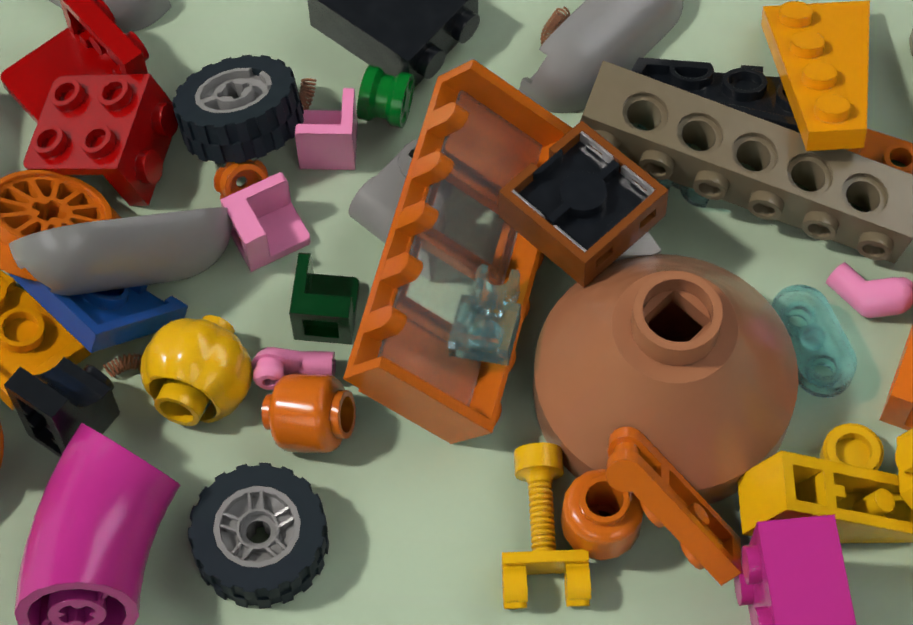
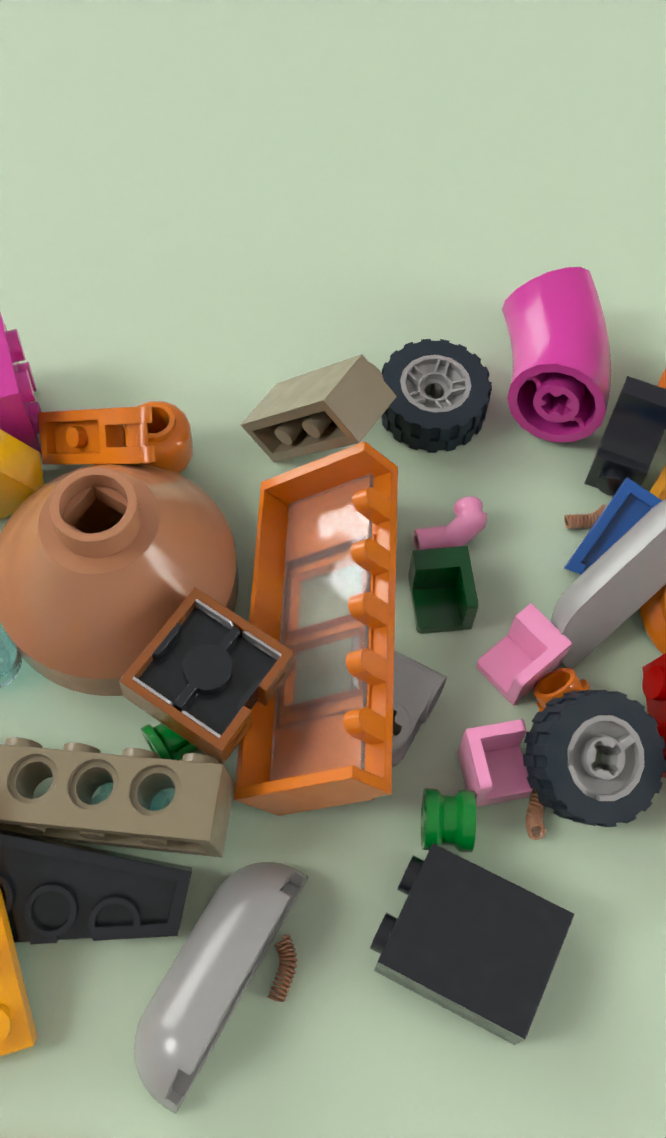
camera: 165 degrees right, 0 degrees up
(195, 363) = (533, 507): yellow plant -> none
(309, 413) = (427, 486): orange head -> none
(413, 470) = (320, 410): none -> dark tan brick
(487, 322) = (283, 558): clear light blue plate -> none
(539, 466) = (217, 479): yellow bar -> none

